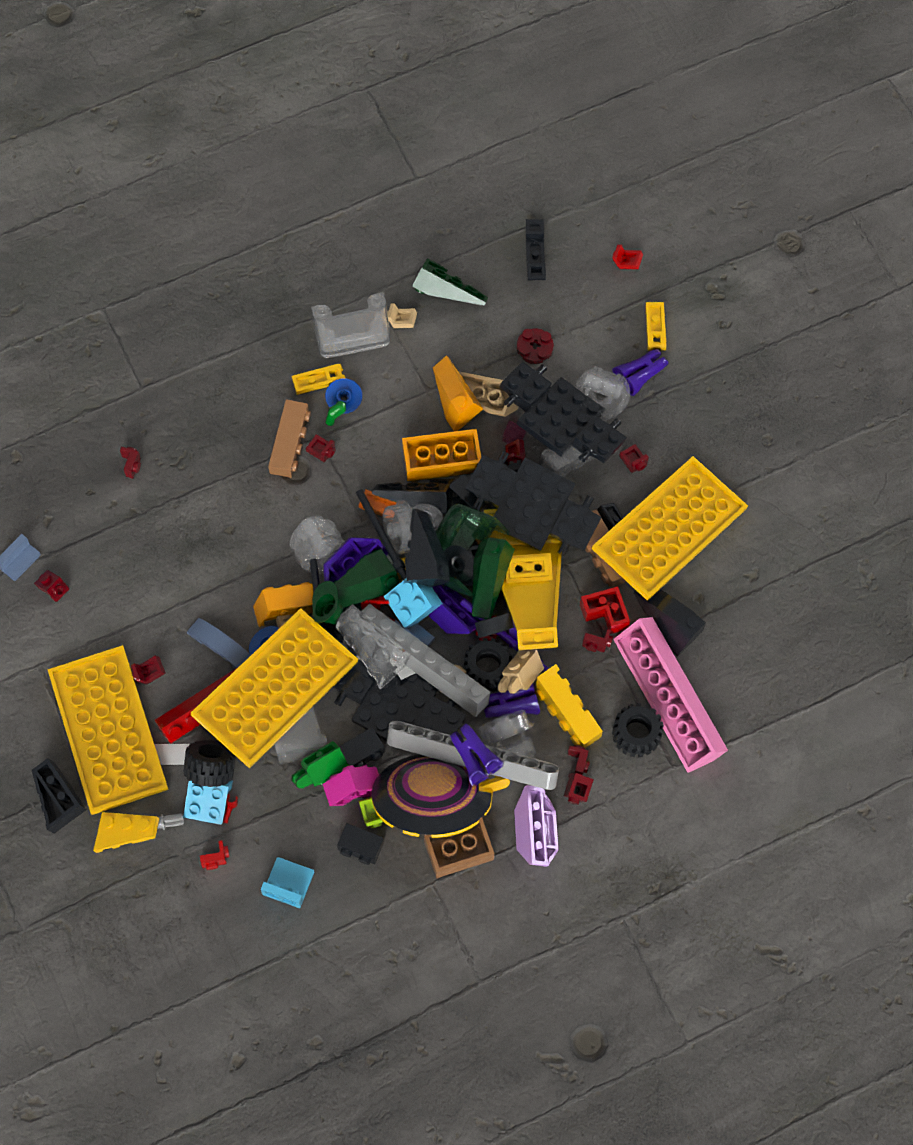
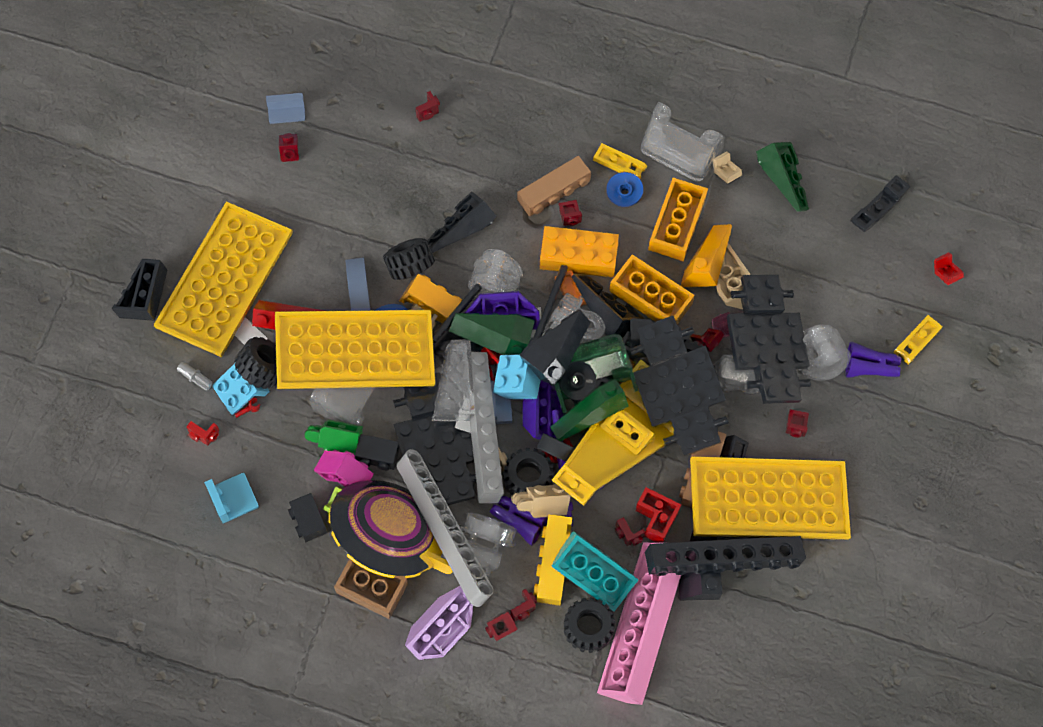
camera: 45 degrees right, 0 degrees up
(121, 829) = (163, 356): yellow wing -> none
(148, 670) = (289, 262): dark red bracket -> none
(240, 586) = (408, 258): none -> black tyre
(249, 519) = (470, 217): none -> black wedge
(326, 603) = (450, 325): dark green piece -> none
(334, 412) = (605, 195): green arm -> none
(356, 470) = (579, 250): none -> light orange brick
(406, 384) = (678, 219): none -> light orange brick
(475, 770) = (440, 529): dark purple piece -> none
(532, 336) = (811, 265): dark red plate -> none
(604, 688) = (594, 571): none -> teal slope
(682, 595) = (715, 550): none -> black brick

